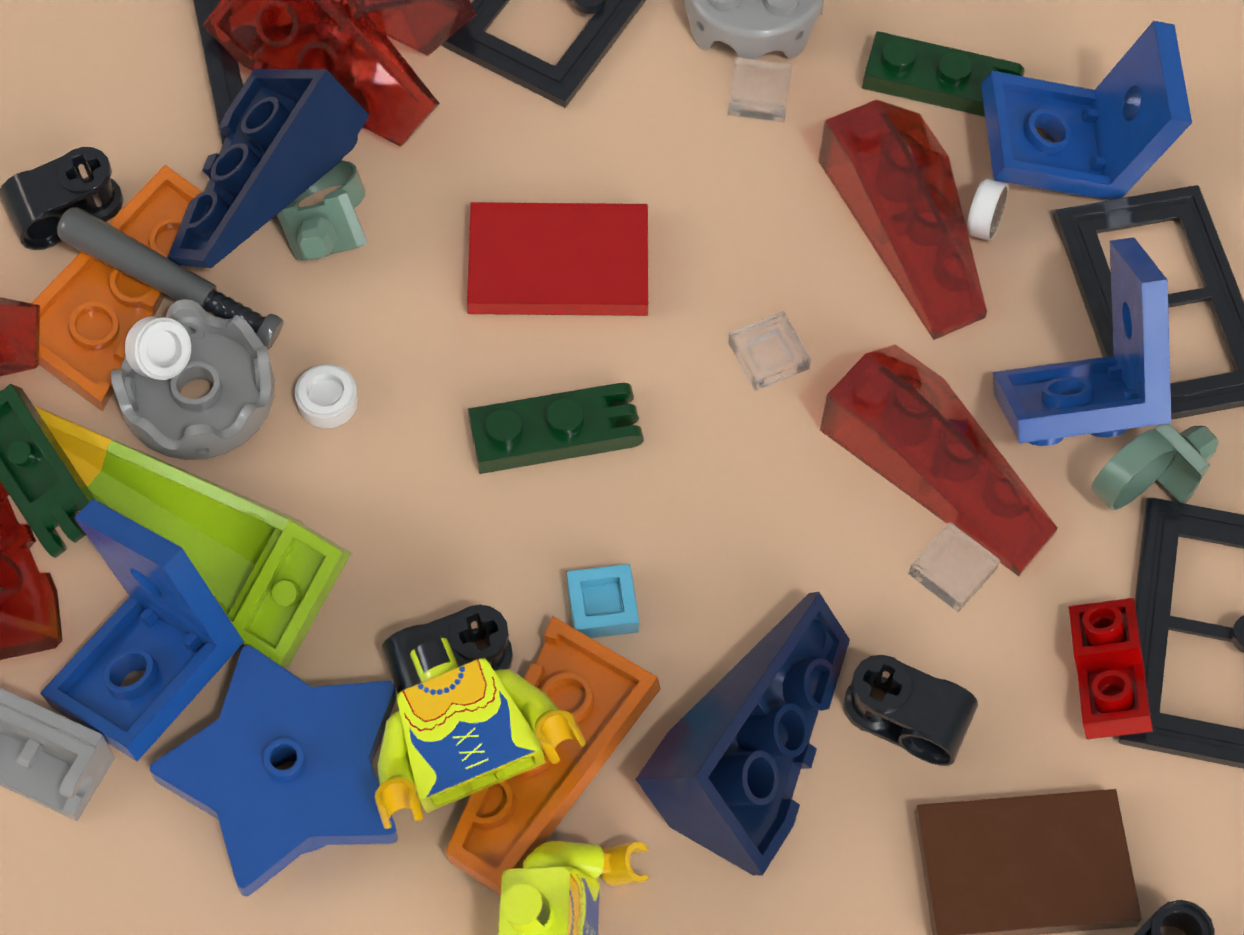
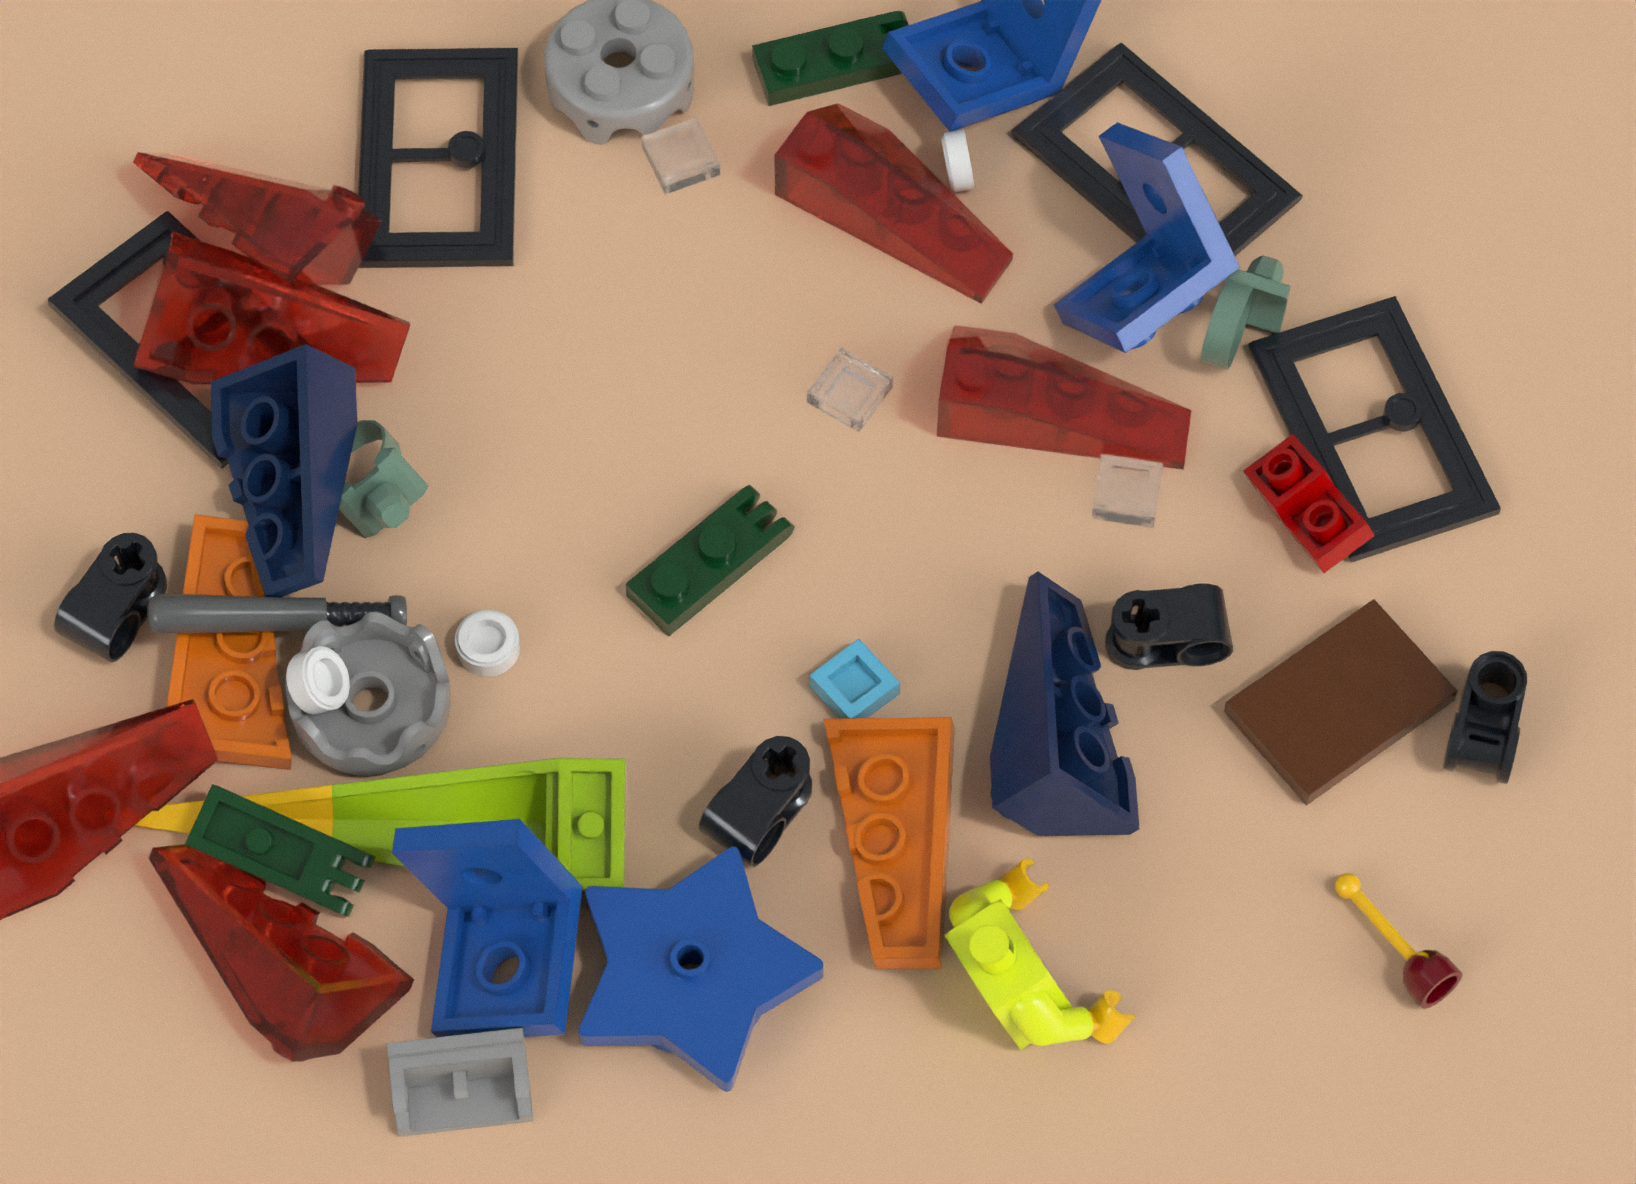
camera: 30 degrees left, 0 degrees up
(463, 732) = (832, 845): torso -> none
(558, 259) = (607, 408): red tile -> none

